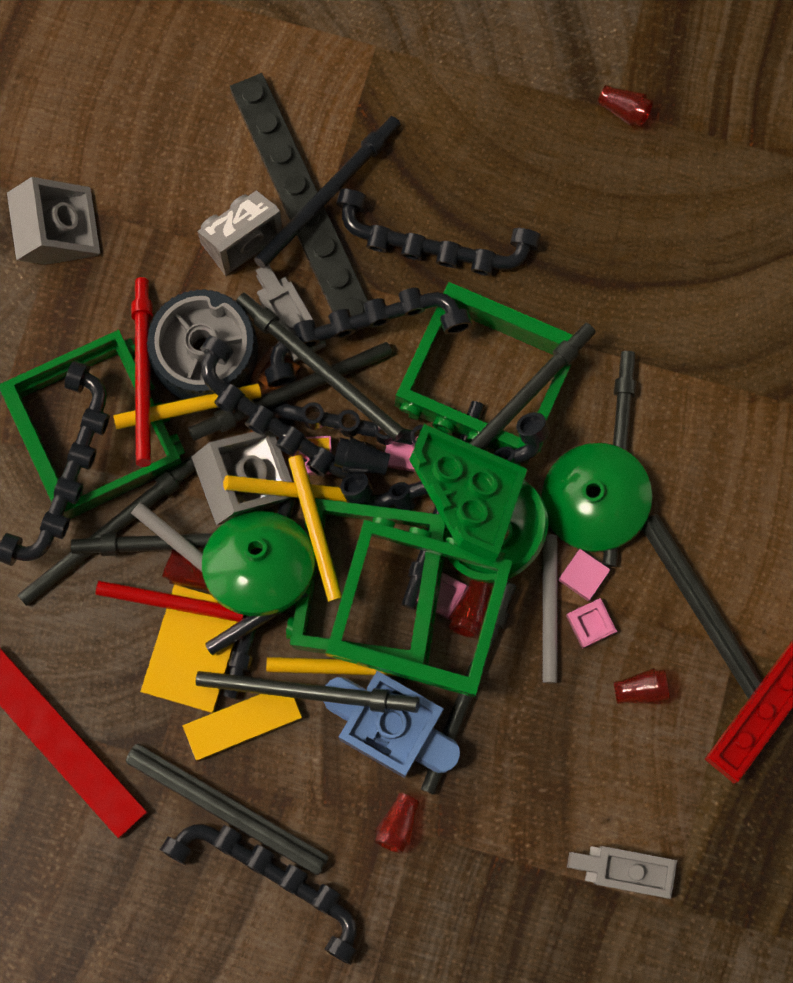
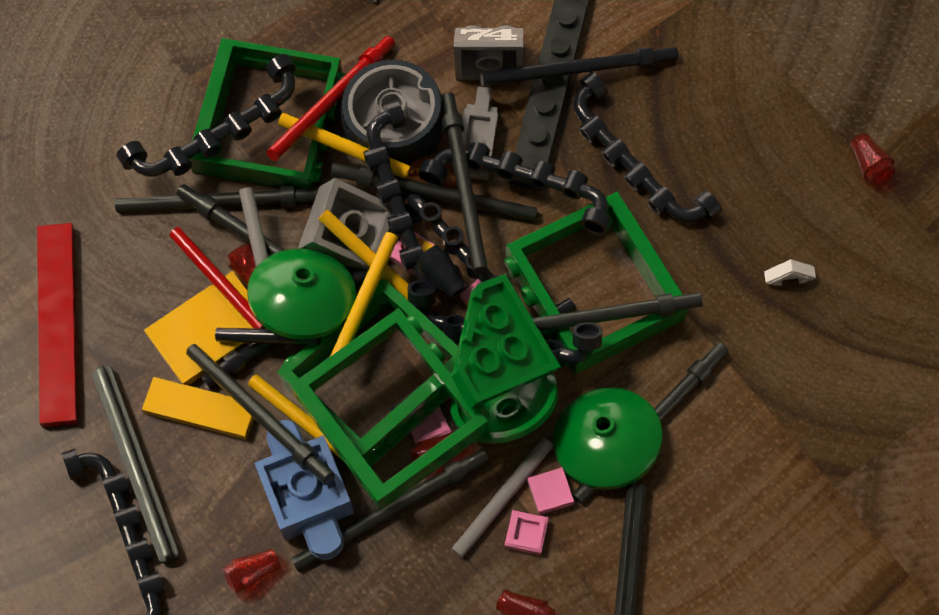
camera: 45 degrees right, 10 degrees down
(633, 250) = (789, 270): none -> white tile

